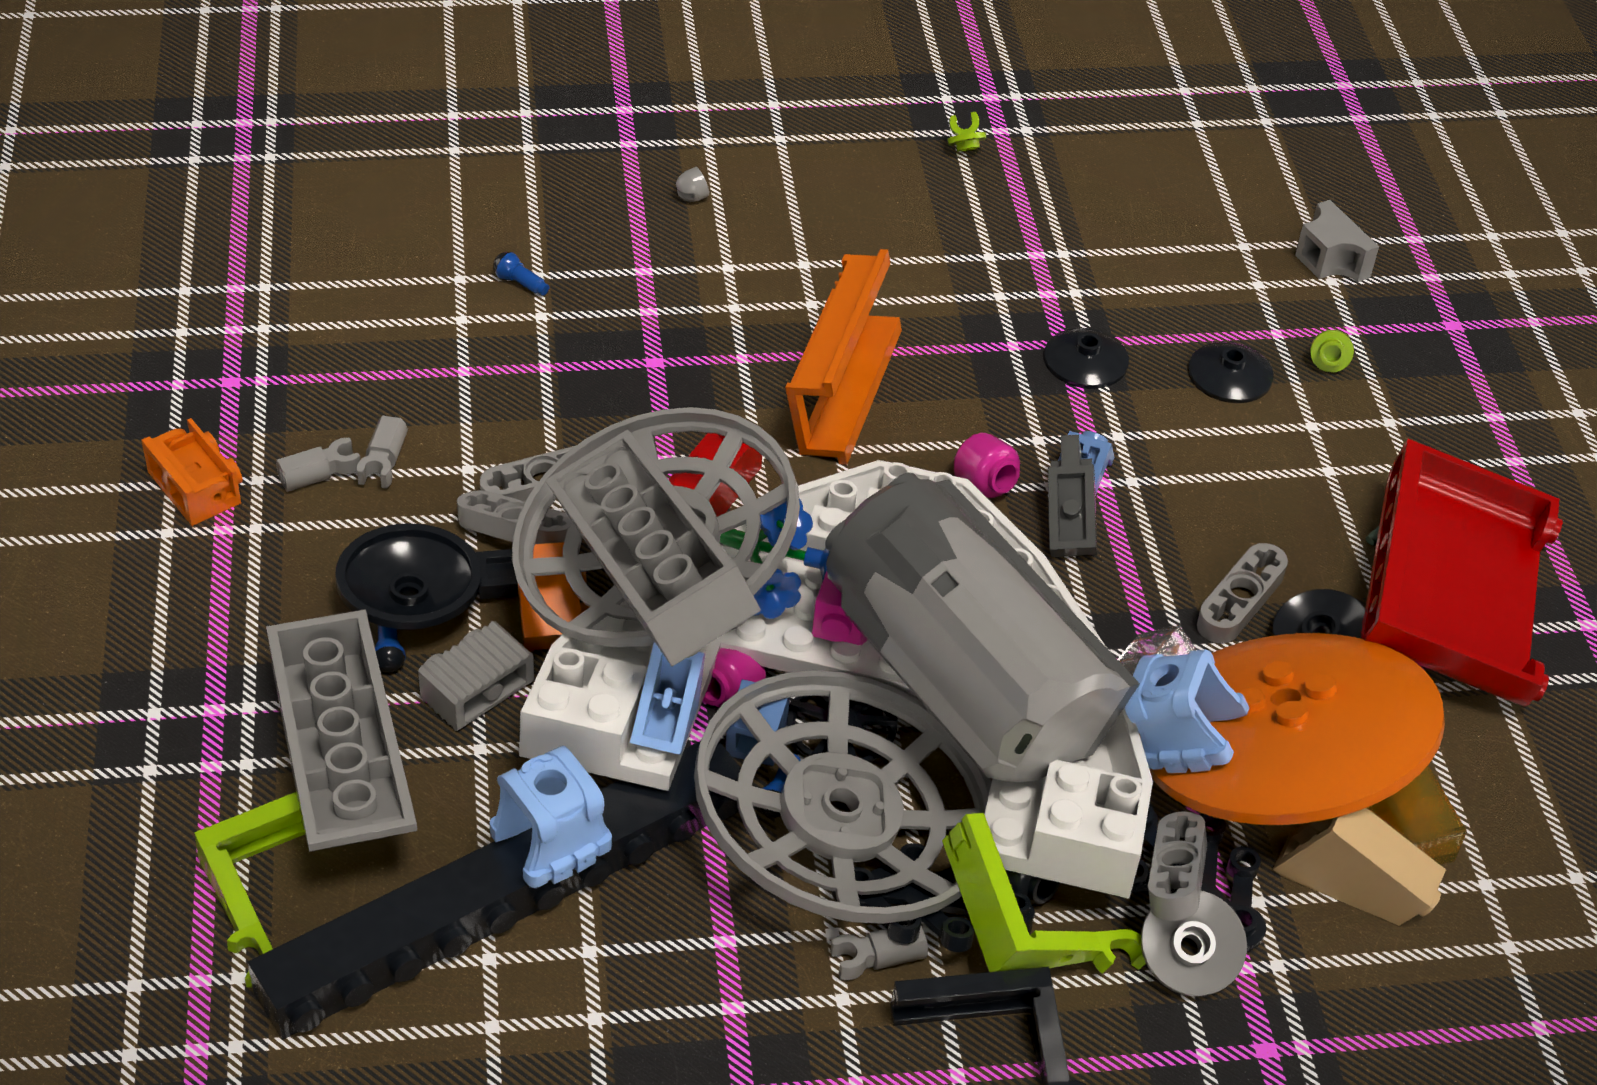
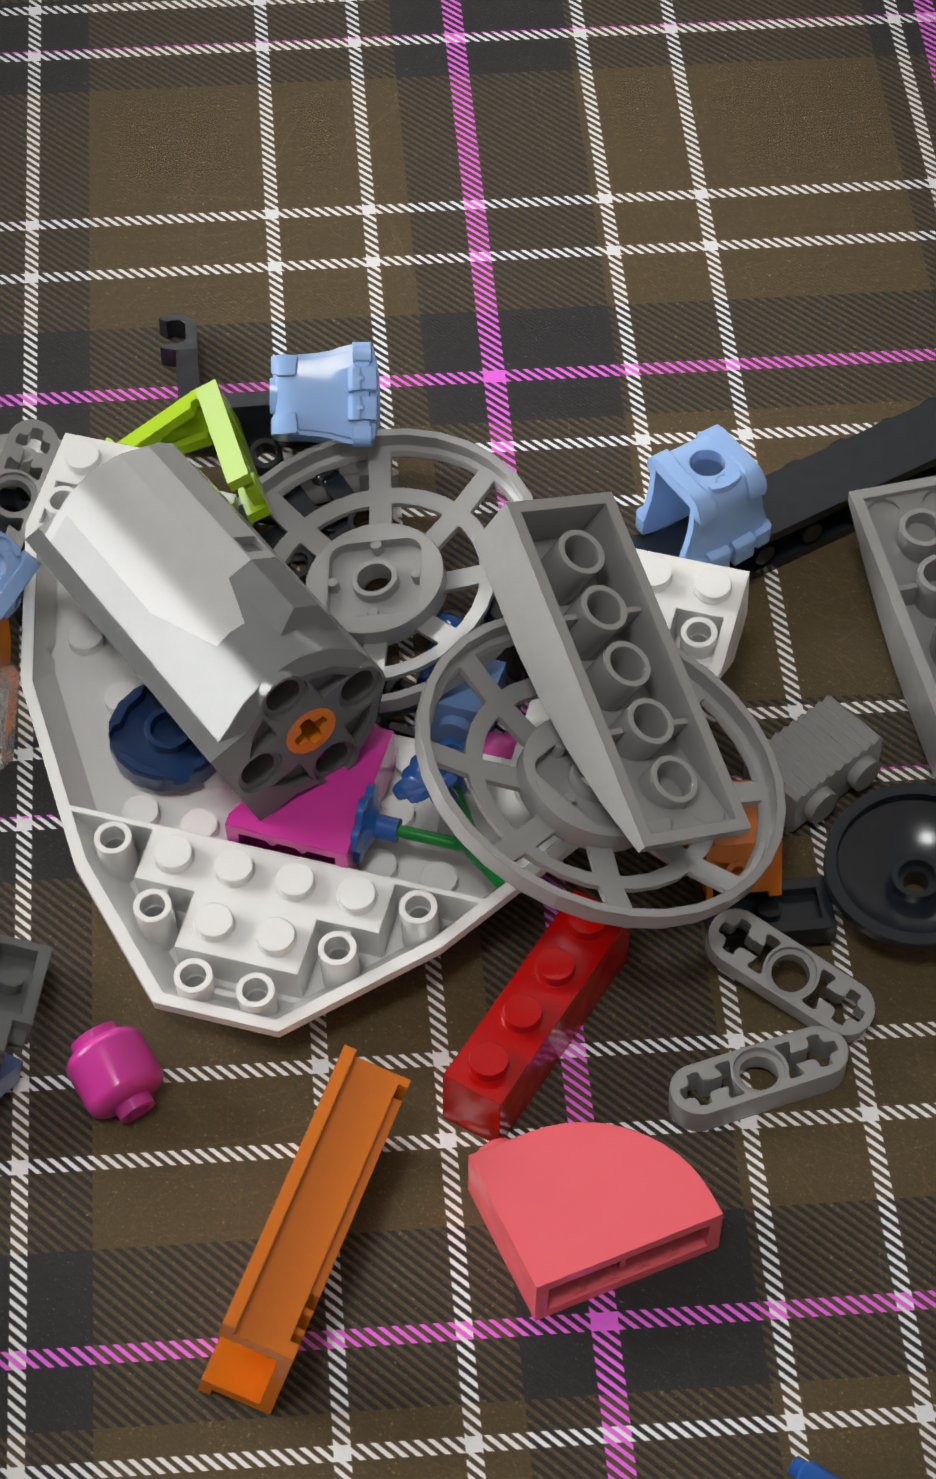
camera: 175 degrees left, 5 degrees up
(656, 378) = (589, 1210): none -> coral brick
(886, 966) = (326, 396): none -> light blue piece

